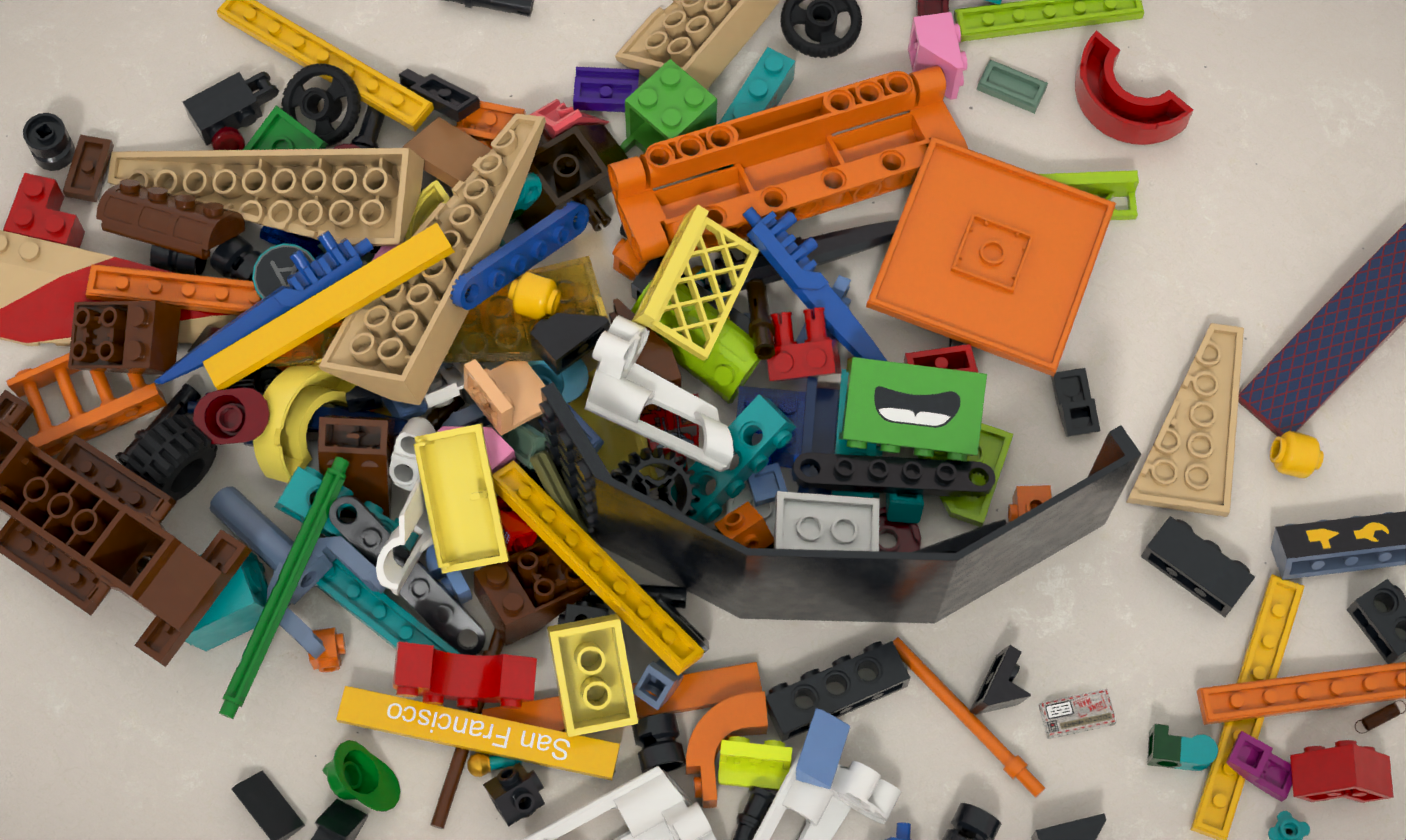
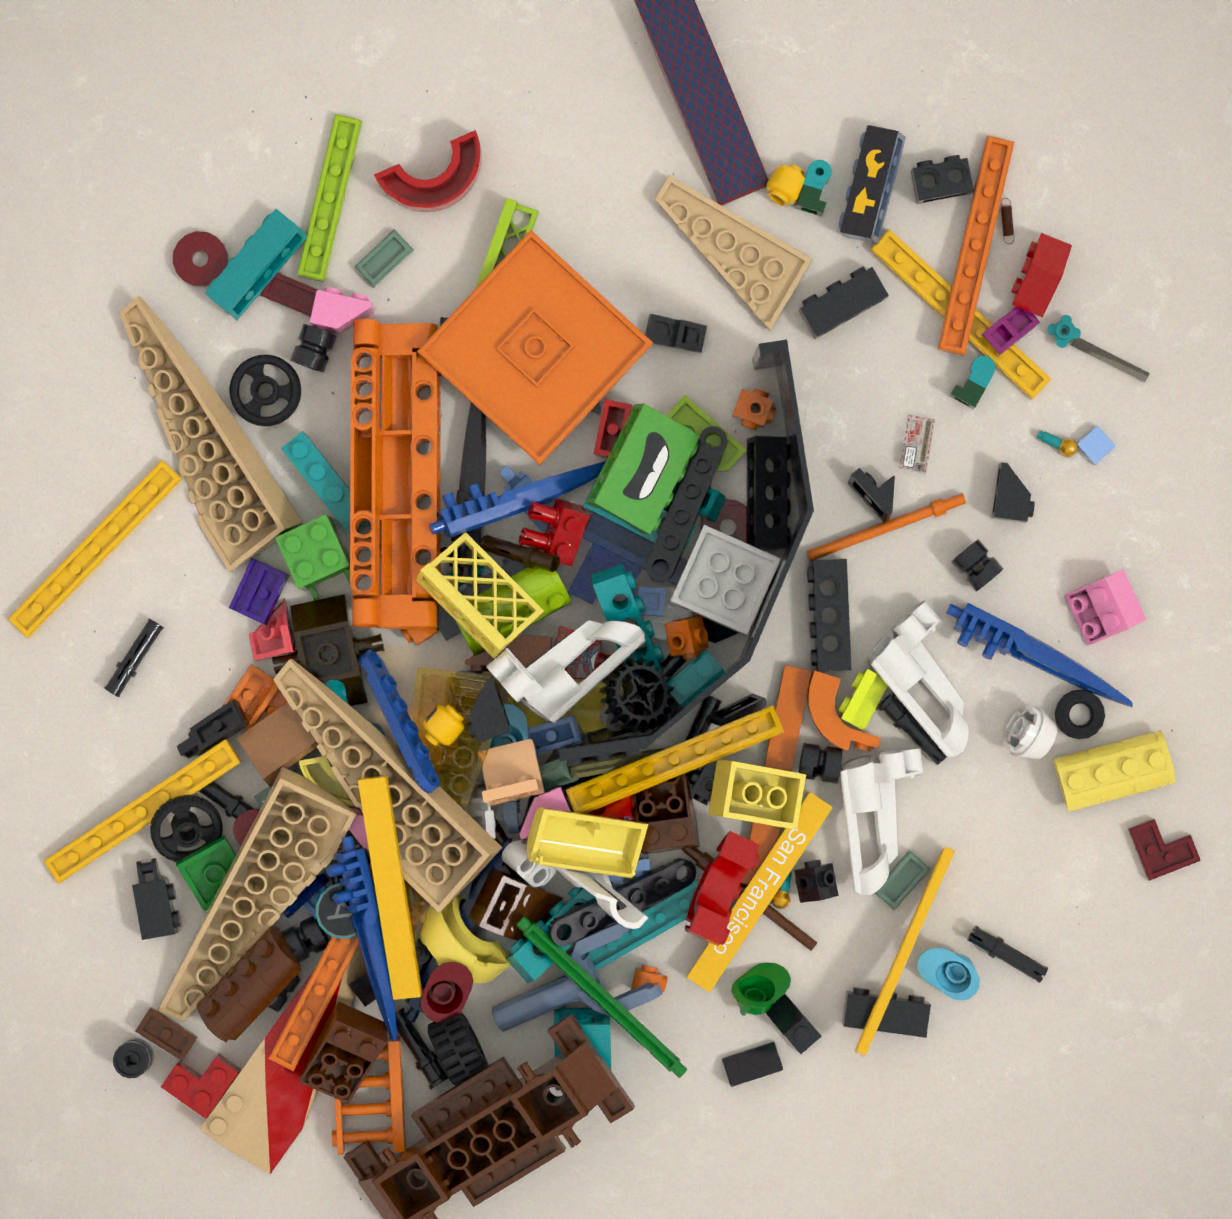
camera: 65 degrees left, 20 degrees up
(228, 139) = (189, 914): dark red tile -> none
(659, 680) = (779, 744): sand blue leg -> none
(822, 750) = (878, 648): medium blue slope -> none
(886, 47) = (313, 348): none -> black wheel
(1305, 484) = (815, 179): none -> leg

